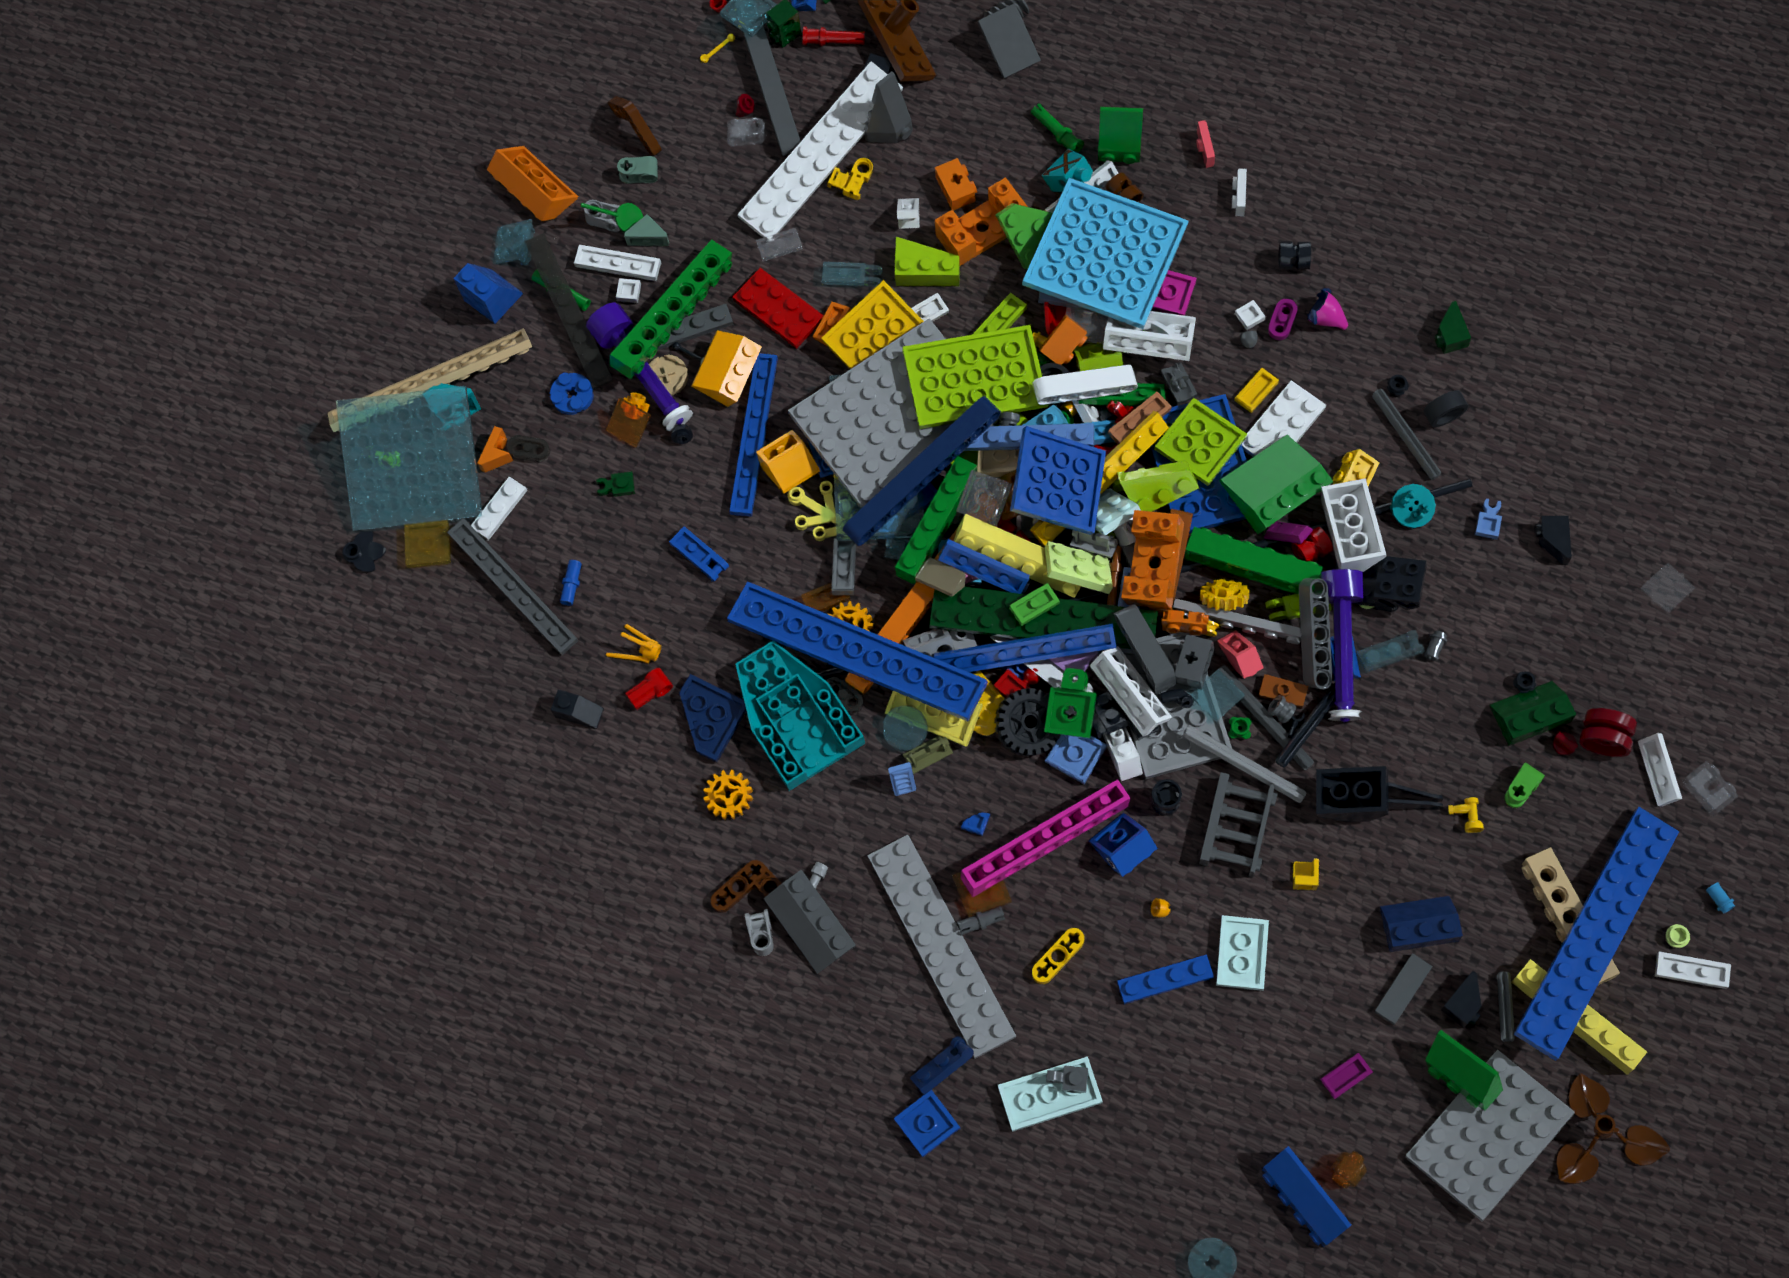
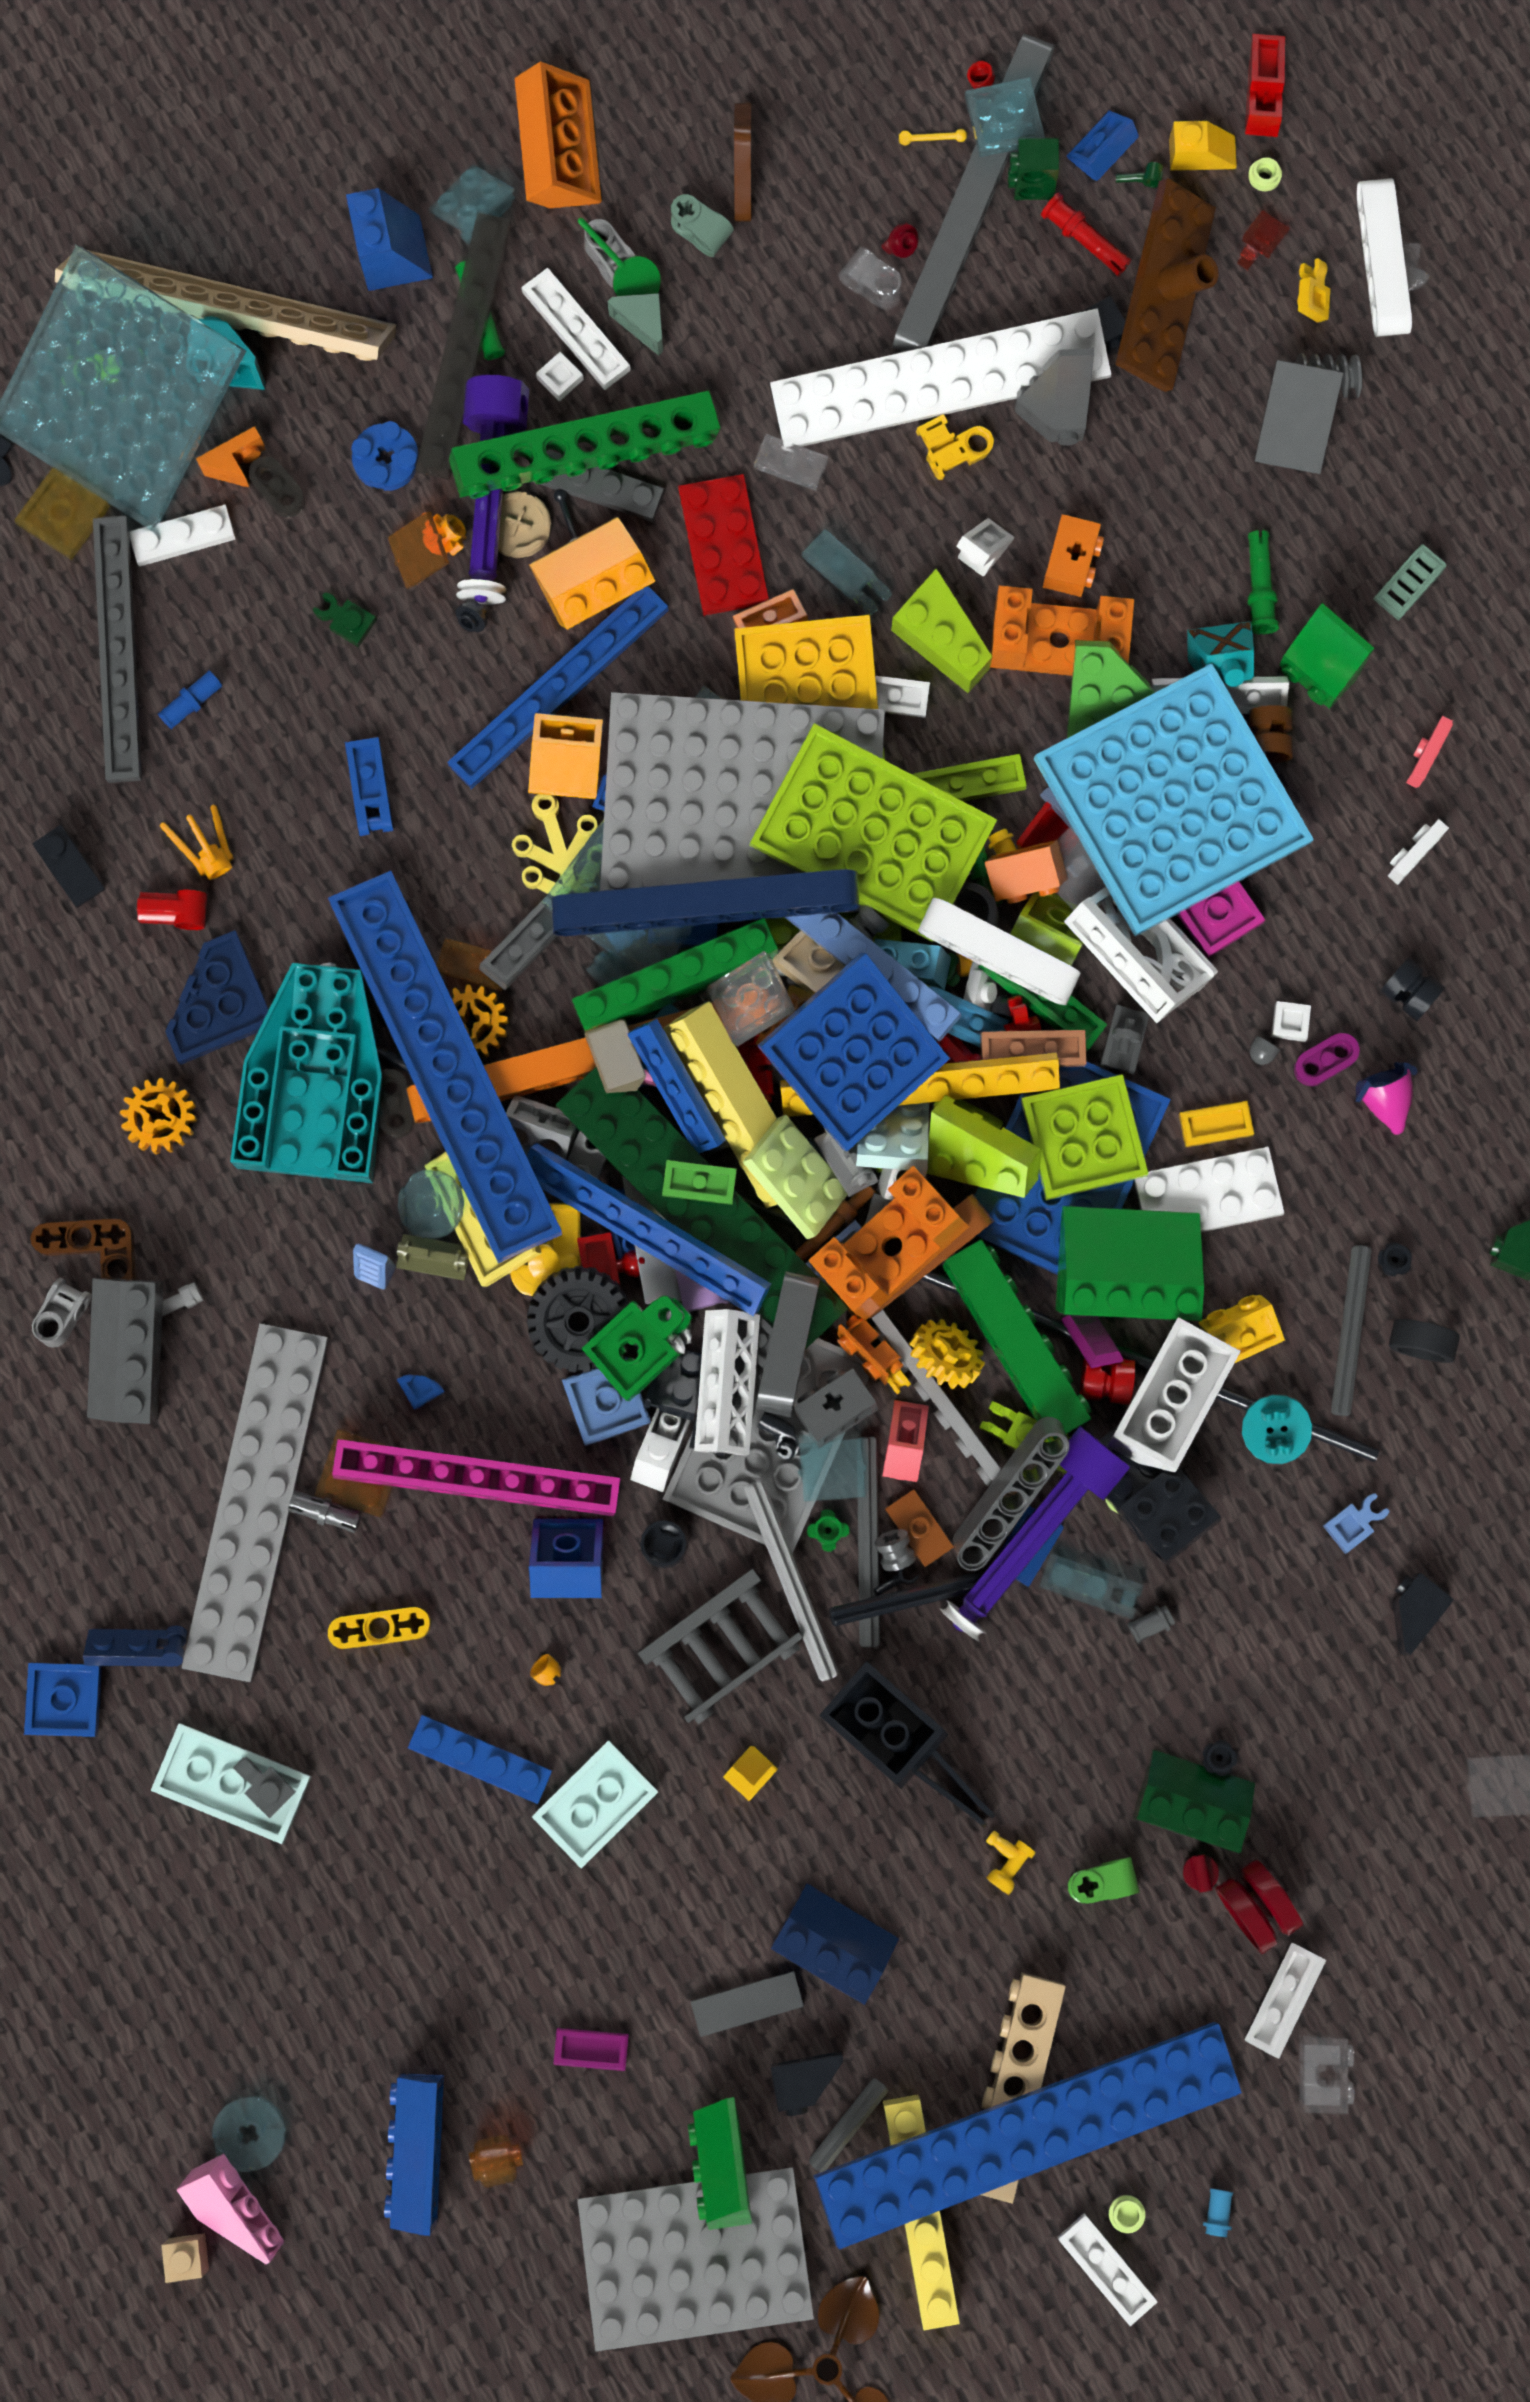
camera: 30 degrees right, 10 degrees up
(1127, 62) = (1430, 562): none -> sand green slope

